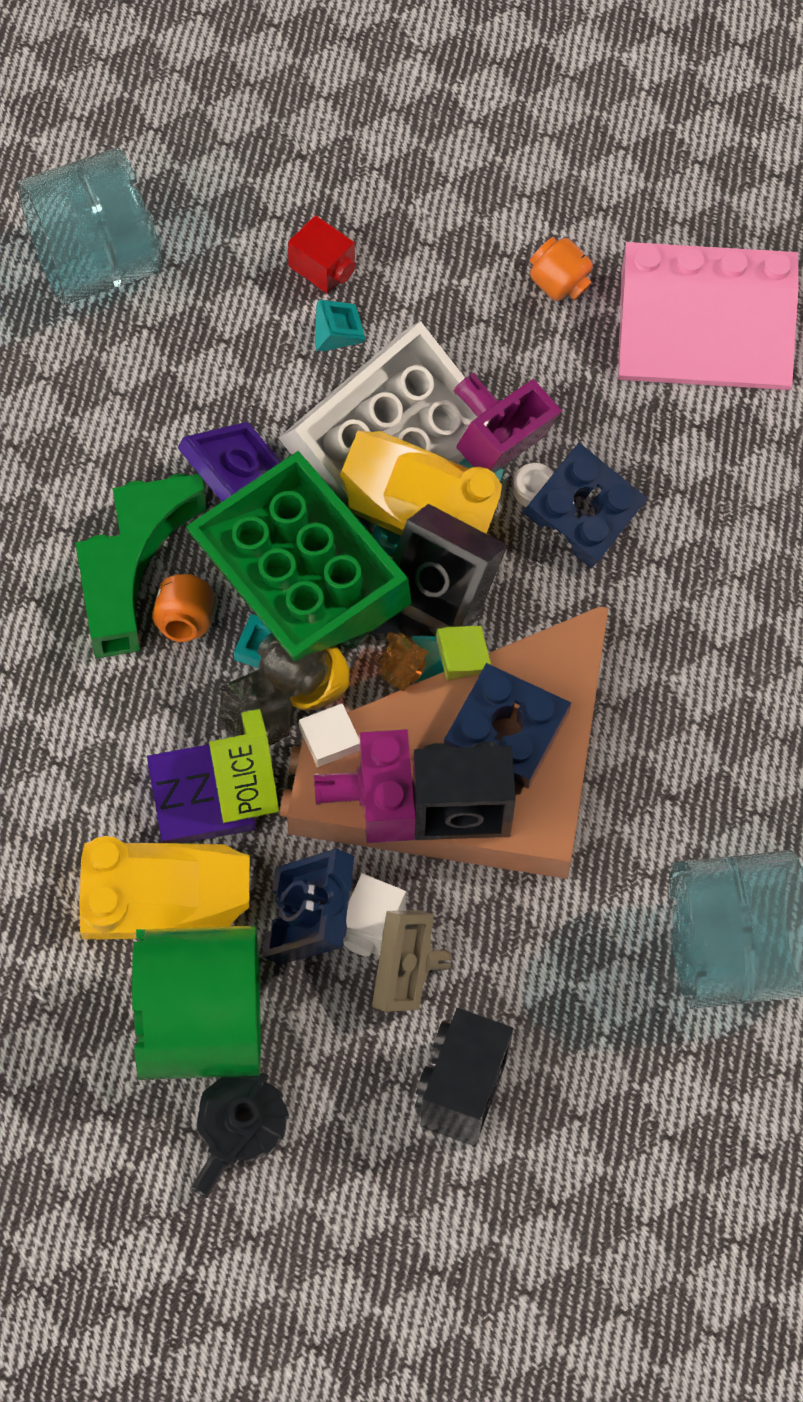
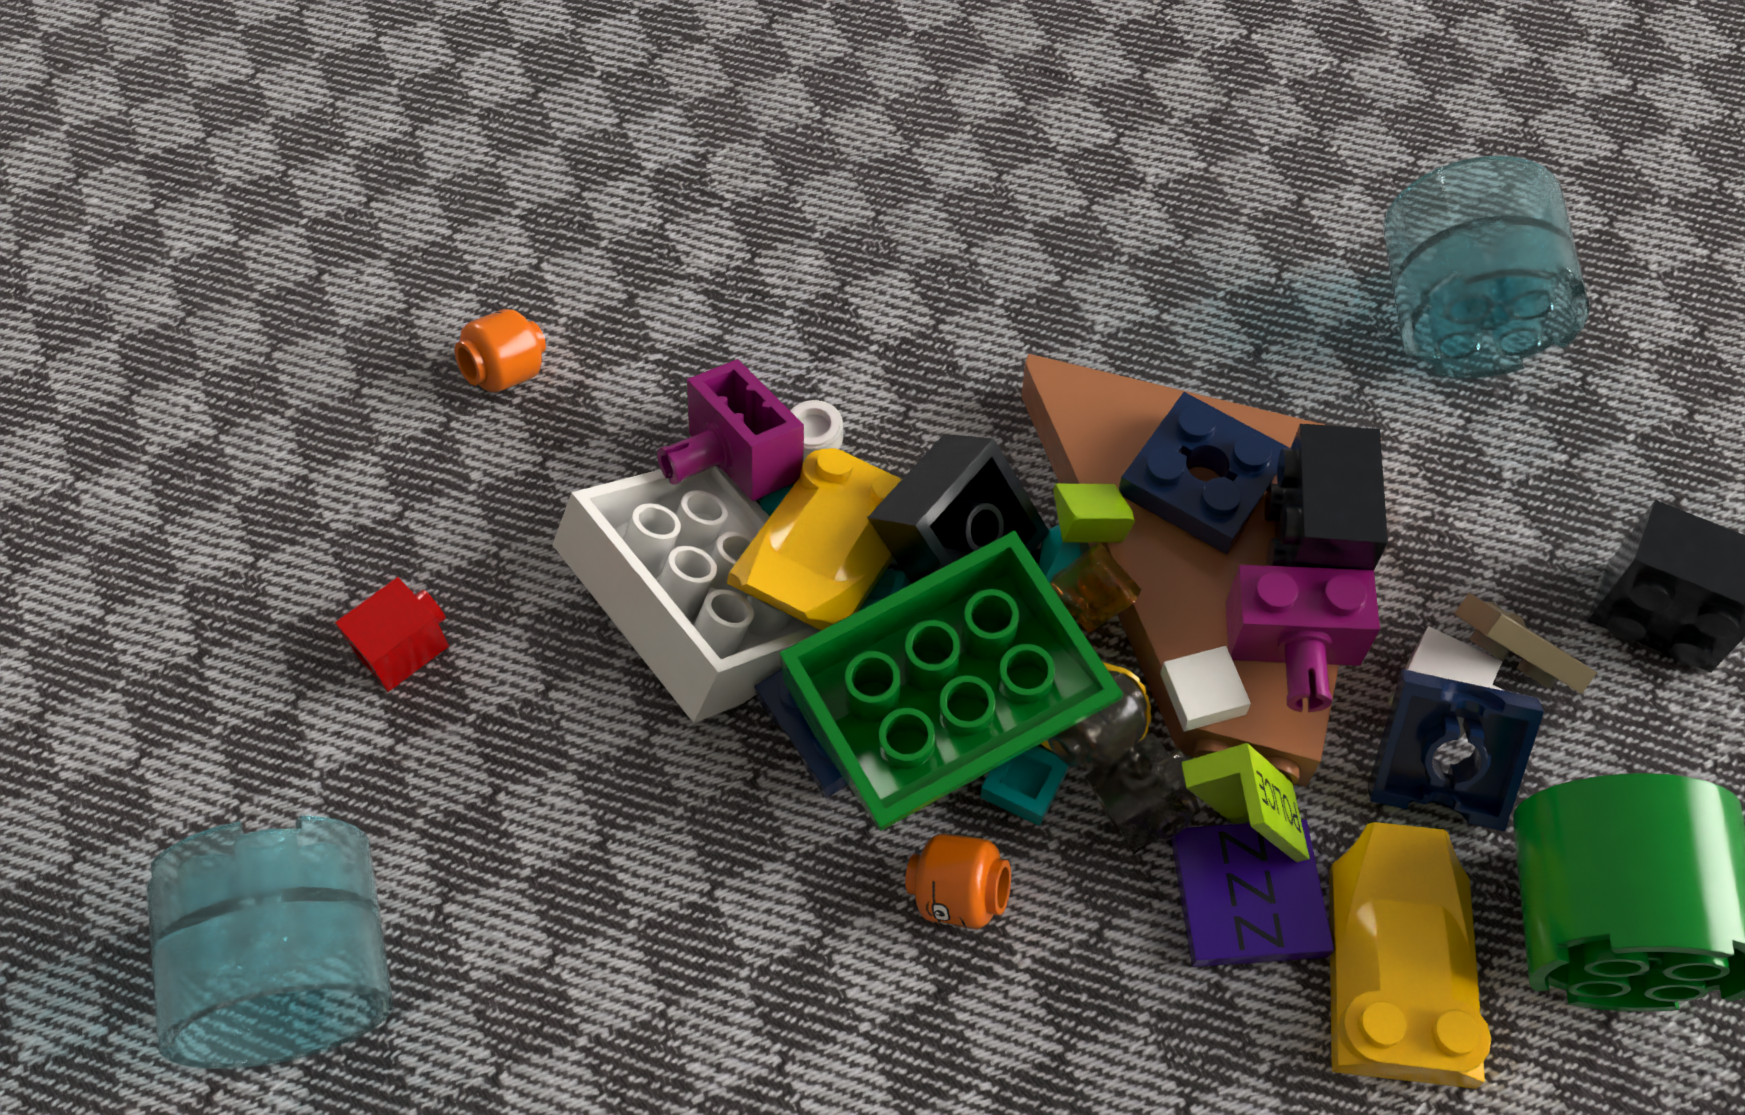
camera: 80 degrees left, 5 degrees down
(116, 564) = (887, 980): green arch -> none
(228, 457) = (735, 779): dark purple tile -> none
(337, 325) = (512, 633): teal slope -> none
(613, 505) = (859, 371): dark blue brick -> none
(708, 315) = (607, 214): bright pink slope -> none

